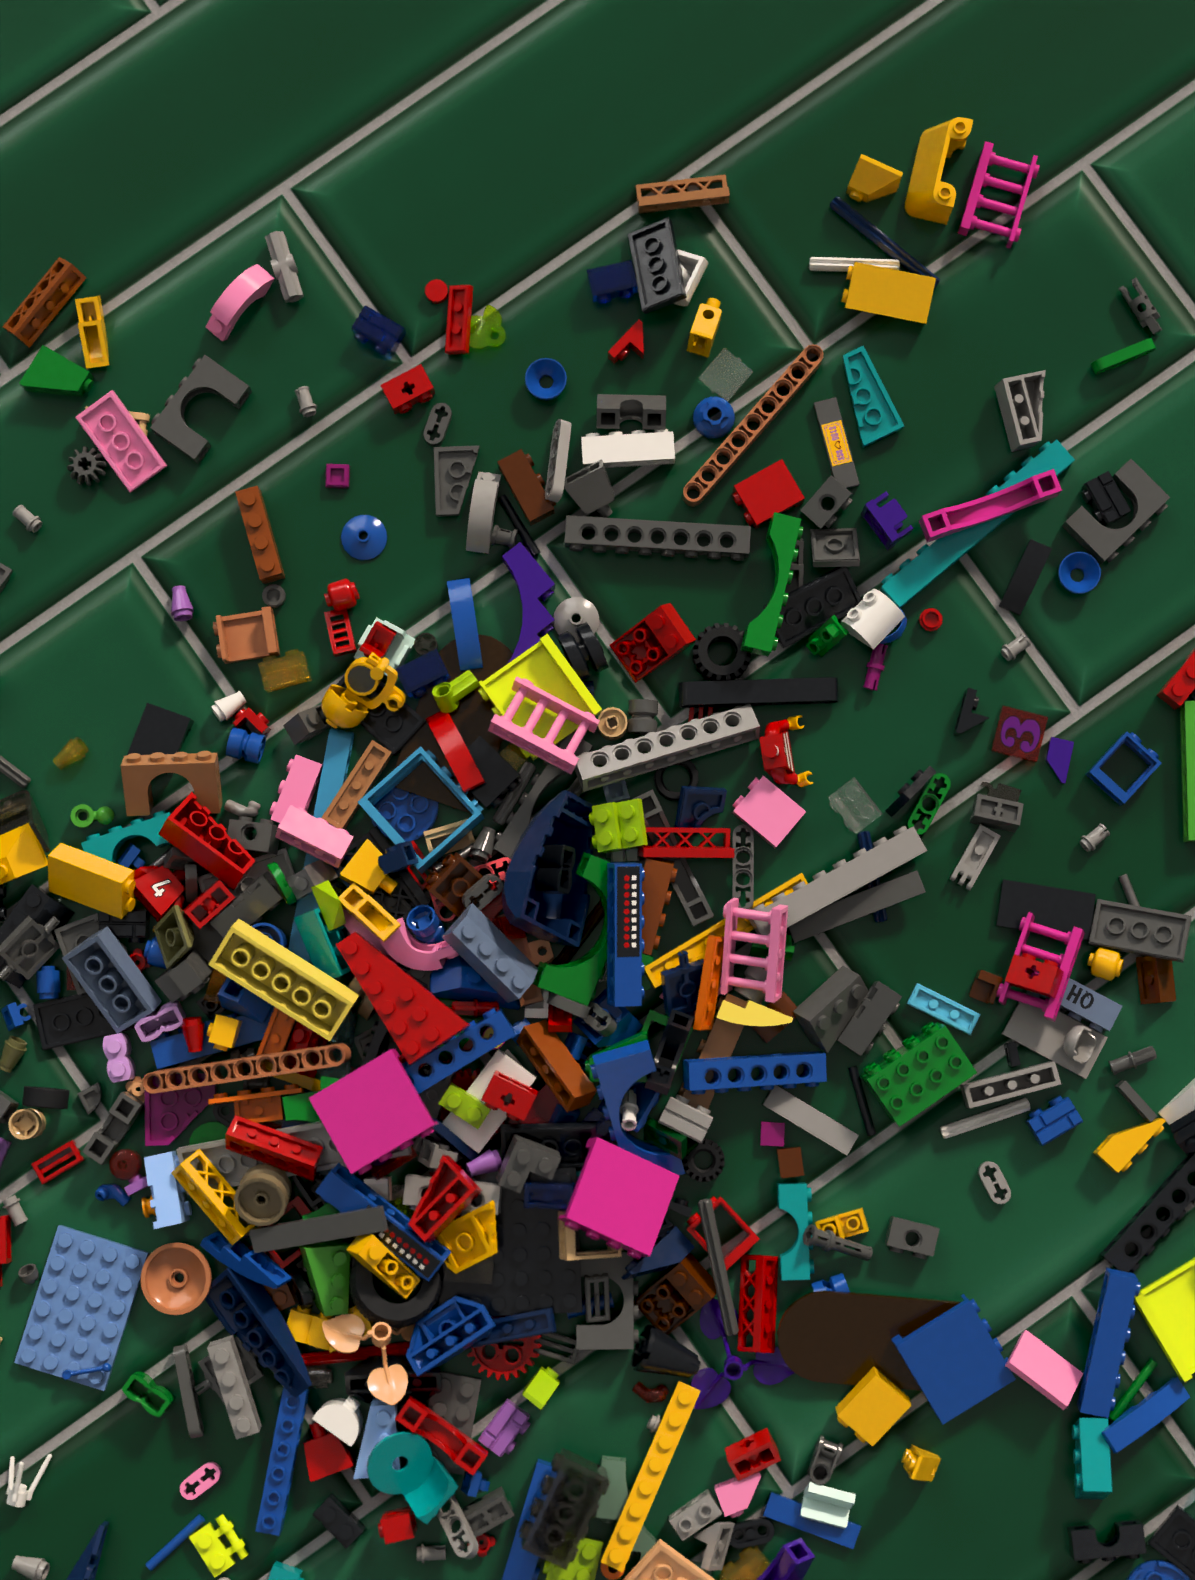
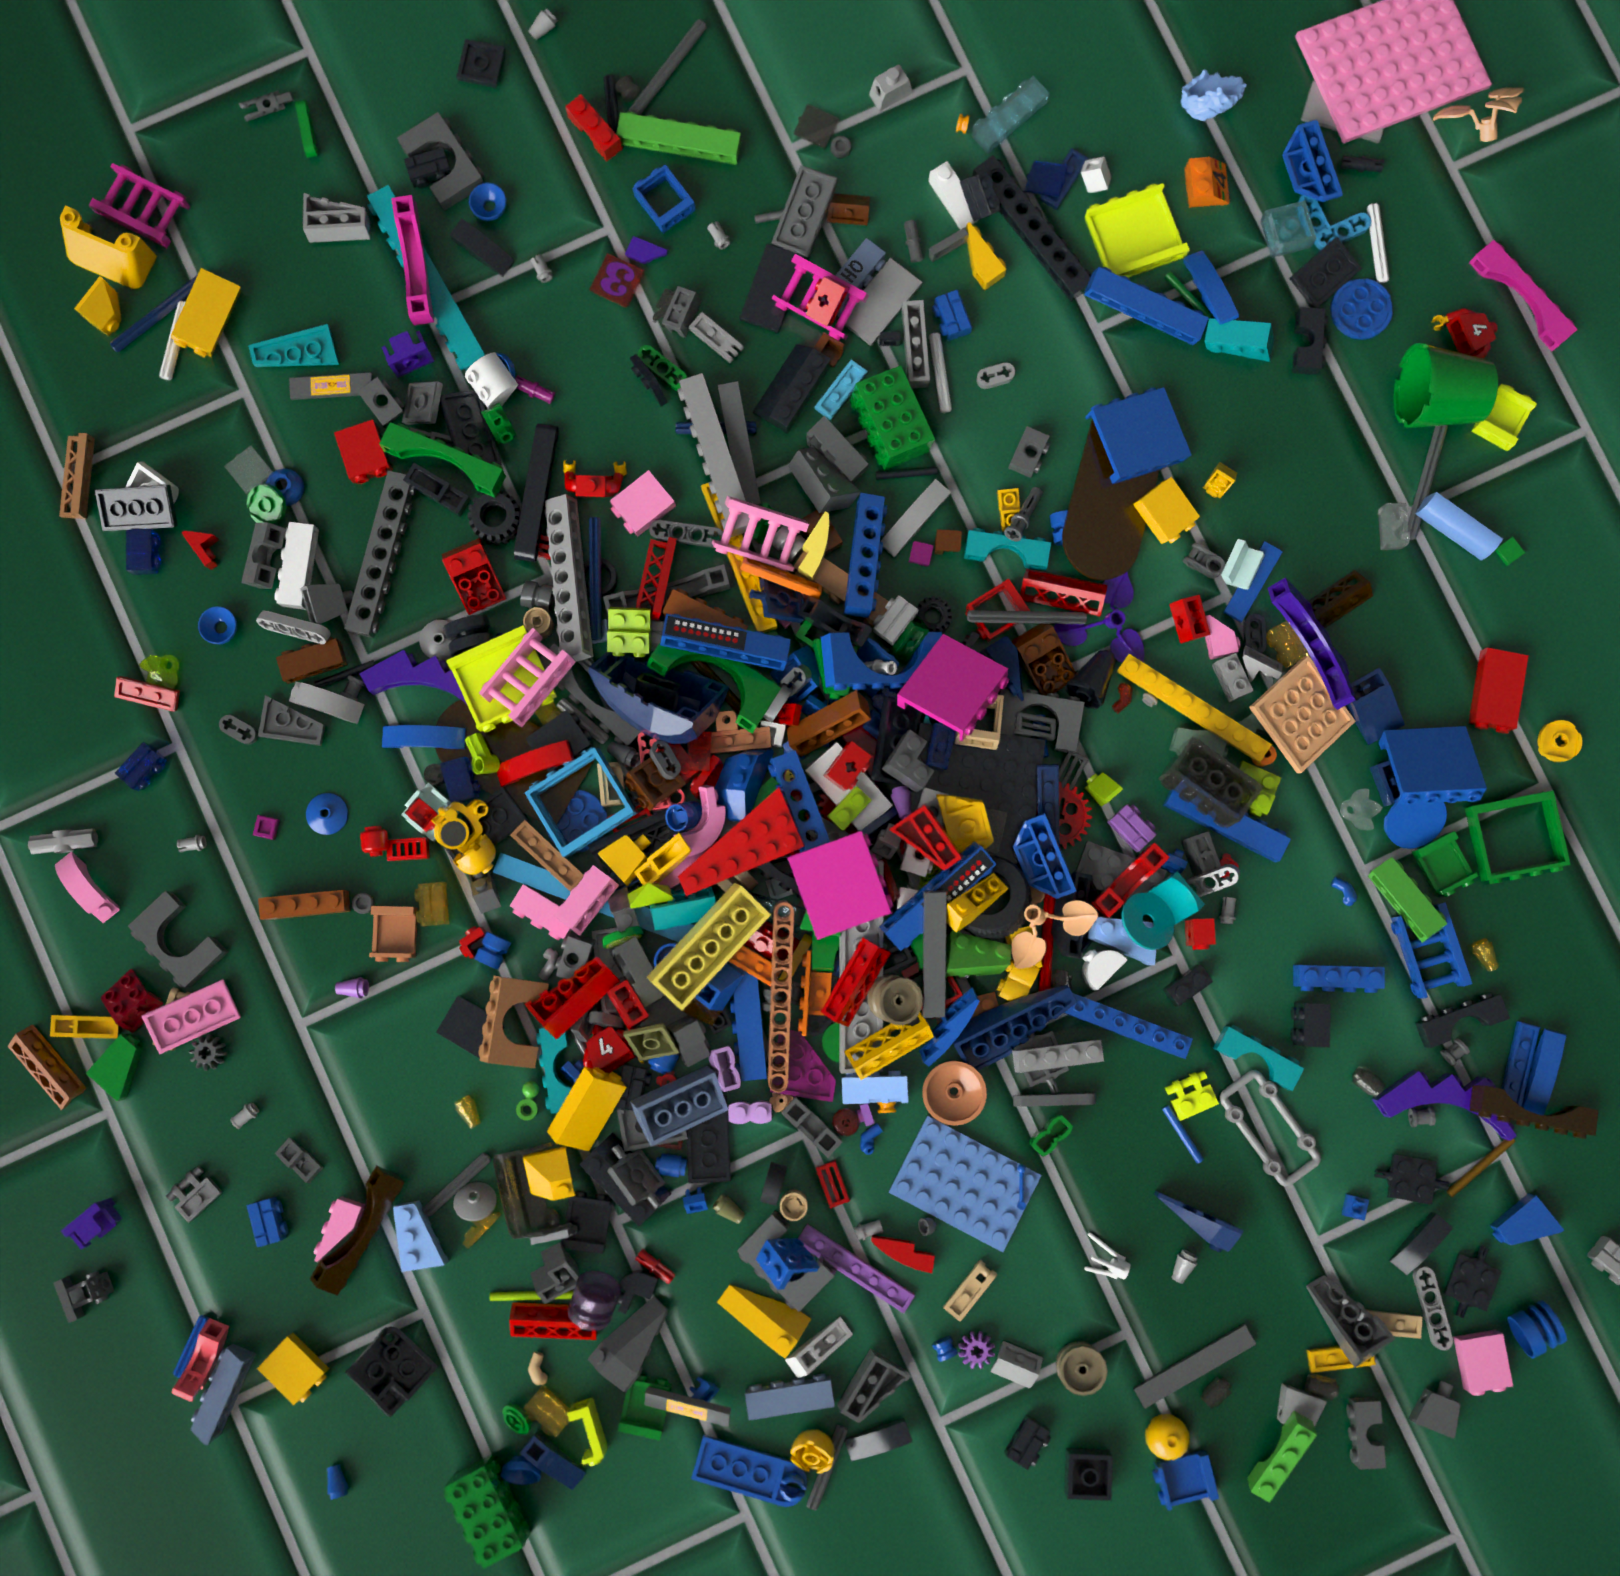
camera: 85 degrees left, 0 degrees up
(91, 1097) = (781, 1144): dark grey tile -> none
(127, 373) = (129, 1001): none -> dark red bracket
(193, 1033) = (741, 1039): red cone -> none
(204, 1485) = (1128, 1104): bright pink beam -> none
(224, 1032) = (745, 1011): yellow brick -> none
(228, 706) = (454, 962): white cone -> none
(303, 1294) = (983, 984): black plate -> none
(326, 1453) = (1127, 986): red torso -> none
(398, 858) = (619, 827): dark blue brick -> none
(417, 381) = (192, 743): red brick -> none
(436, 291) = (116, 709): red tile -> none
(473, 1008) = (765, 785): red axle -> none
(491, 954) = (721, 760): sand blue slope -> none
(673, 776) = (595, 578): none -> dark blue axle
(688, 402) = (266, 504): none -> tile
(698, 804) = (624, 562): dark blue tile -> none
(705, 327) = (198, 476): yellow torso -> none
(740, 583) = (437, 489): none -> black slope
(758, 415) = (293, 445): nougat beam -> none
(854, 806) = (651, 429): clear bracket -> none
(930, 619) = (502, 335): red plate -> none
(935, 953) = (793, 387): none -> black slope
(967, 719) = (593, 321): black slope -> none
(1044, 1369) = (1159, 363): bright pink tile -> none
(1079, 1044) = (891, 280): light grey hair -> none
(1105, 963) = (827, 246): yellow head -> none

